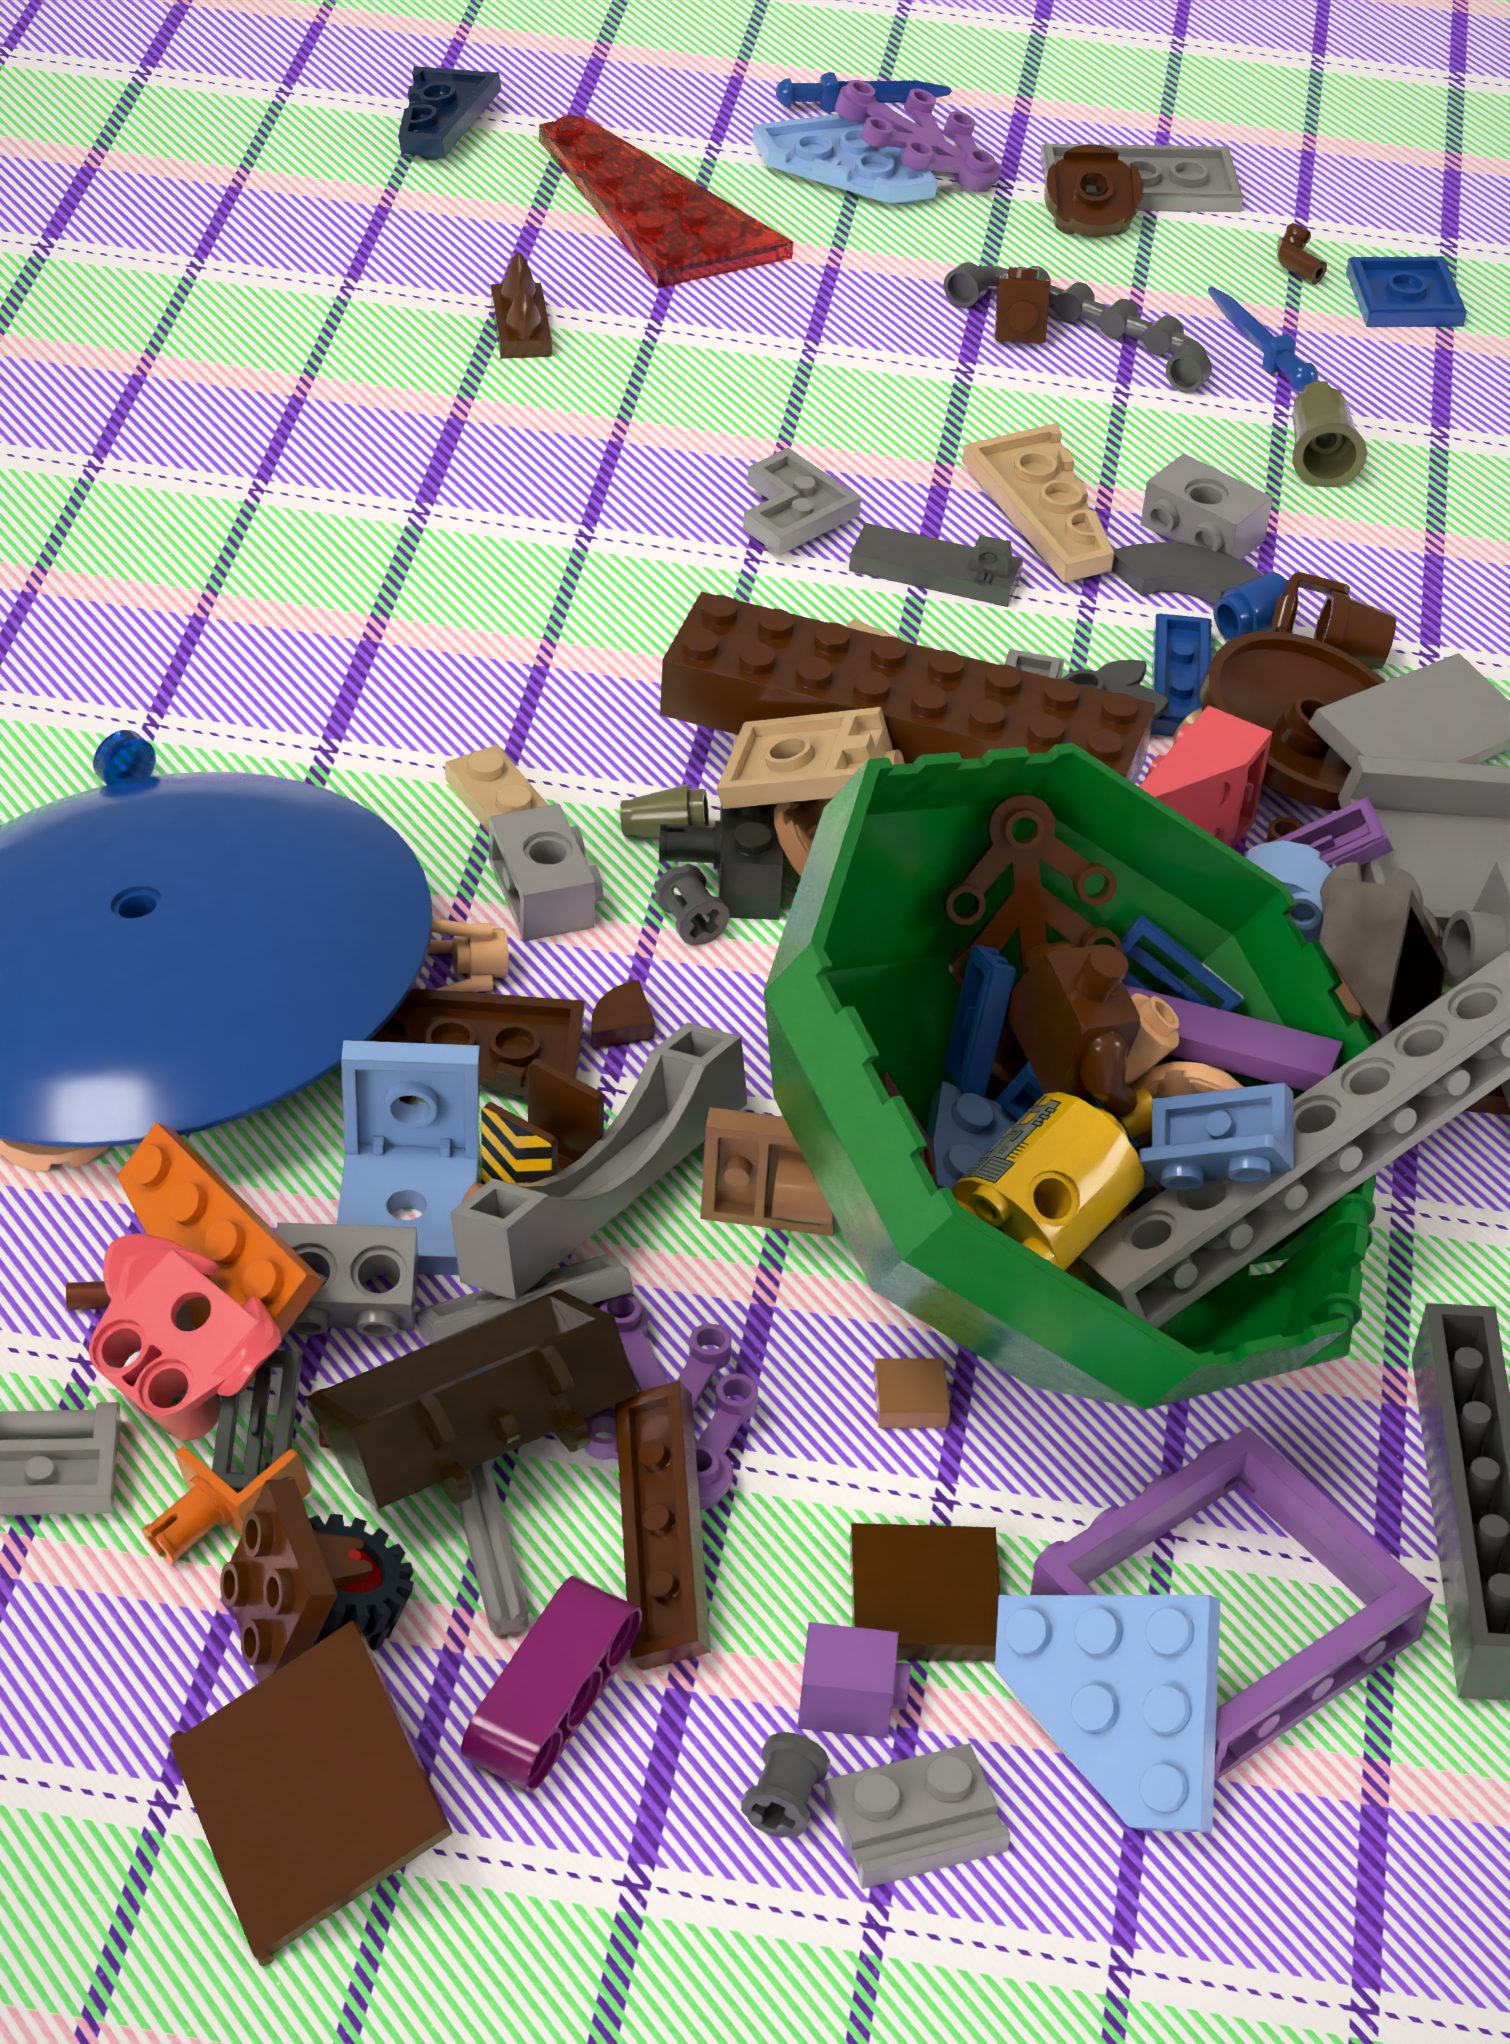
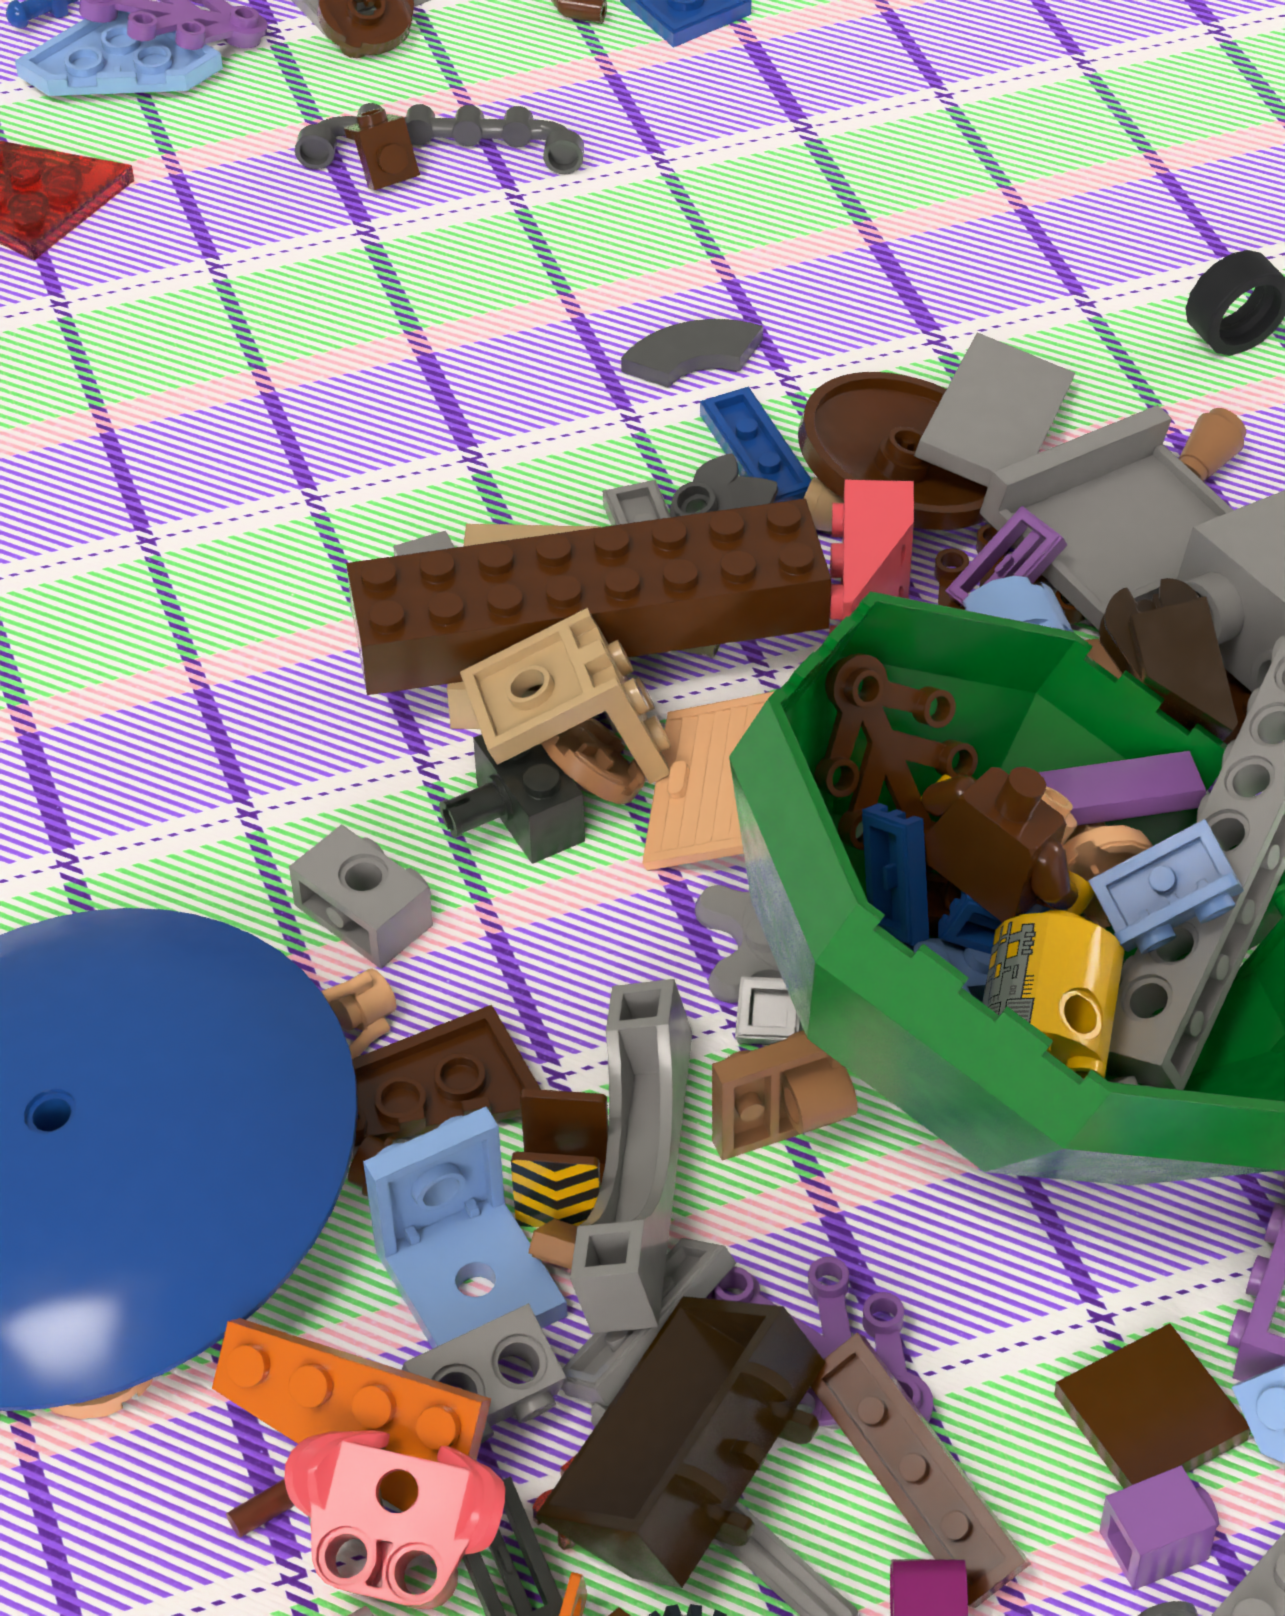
camera: 25 degrees left, 5 degrees up
(490, 784) = (256, 834): tan plate -> none
(622, 1016) = (525, 1001): reddish brown tile -> none
(670, 806) = (427, 785): olive cone -> none
(691, 904) = (512, 865): dark grey bush -> none
(800, 502) = (328, 424): light grey plate -> none
(911, 1393) = (1013, 1234): medium nougat tile -> none
(976, 572) = (481, 434): dark grey hinge -> none
(1040, 494) = (520, 326): tan wing -> none
(1146, 927) = (976, 723): blue tile -> none
(1205, 508) = (674, 282): light grey brick -> none
(1249, 606) = (780, 360): blue brick -> none
(1278, 351) = (625, 103): blue sword -> none
(1326, 443) = (725, 170): olive plant -> none
(1342, 622) = (859, 345): reddish brown piece -> none

